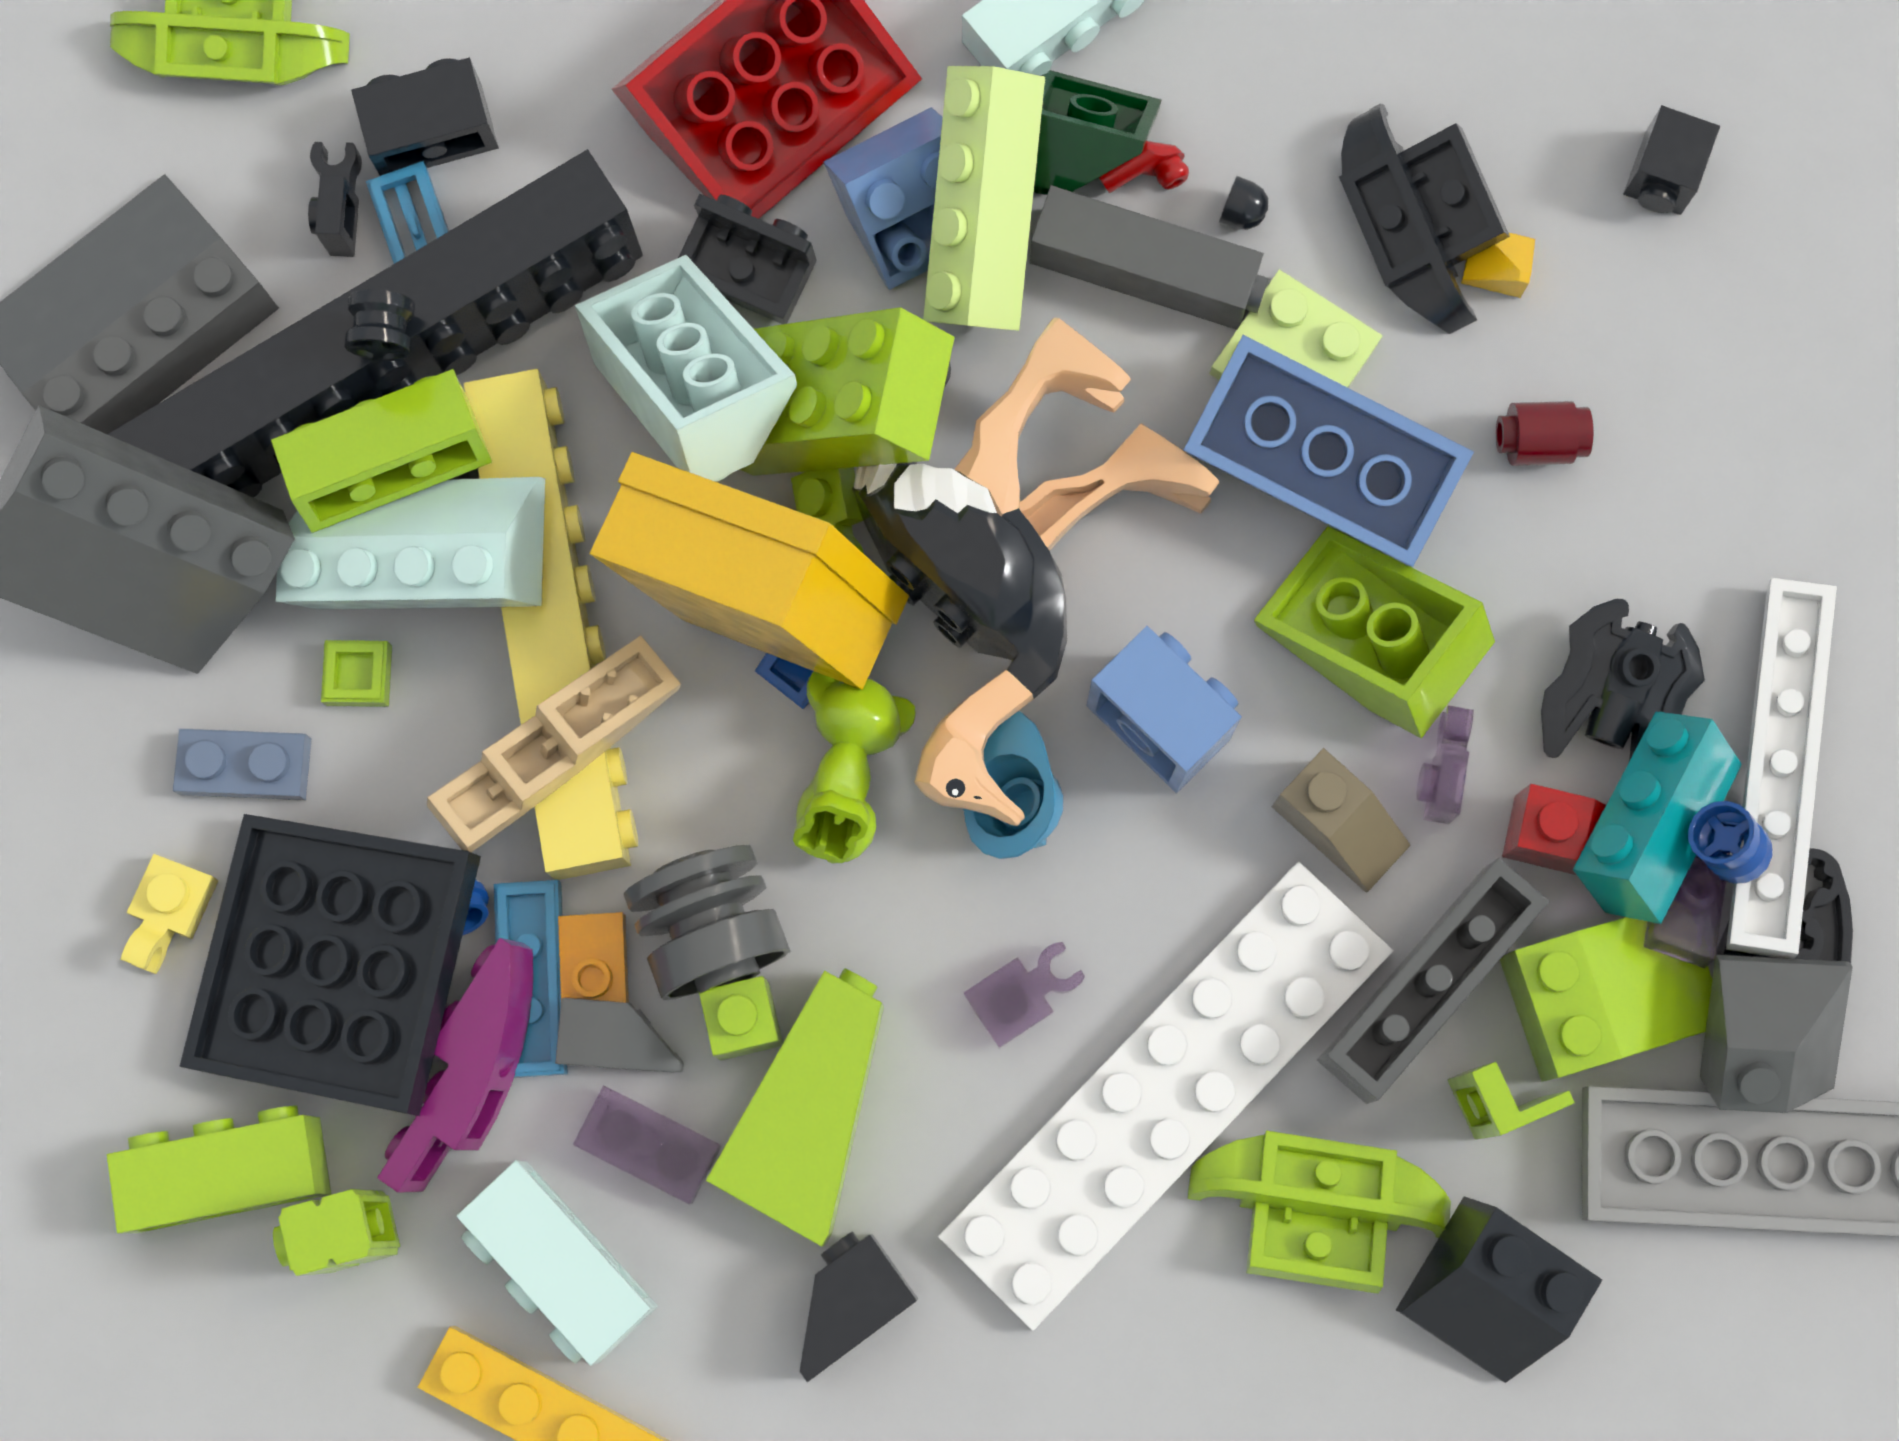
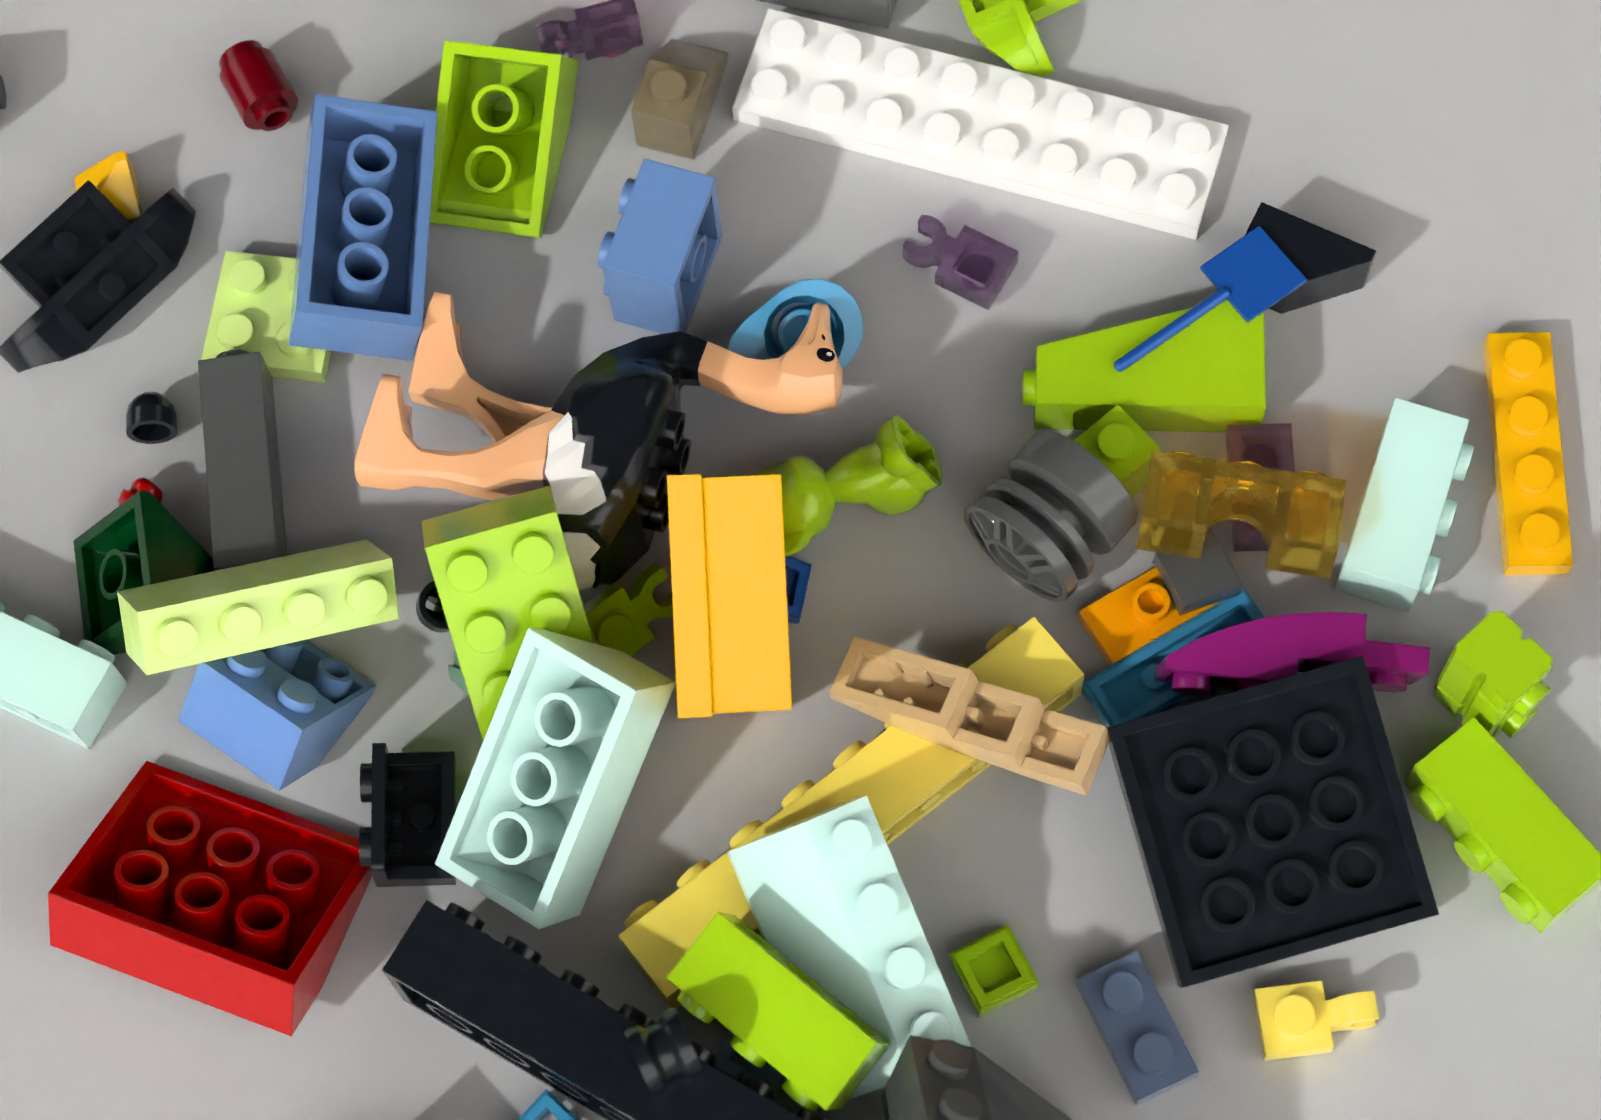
camera: 115 degrees left, 10 degrees down
(579, 1144) = (1292, 510): none -> clear yellow arch
(845, 1241) = (1248, 274): none -> blue piece

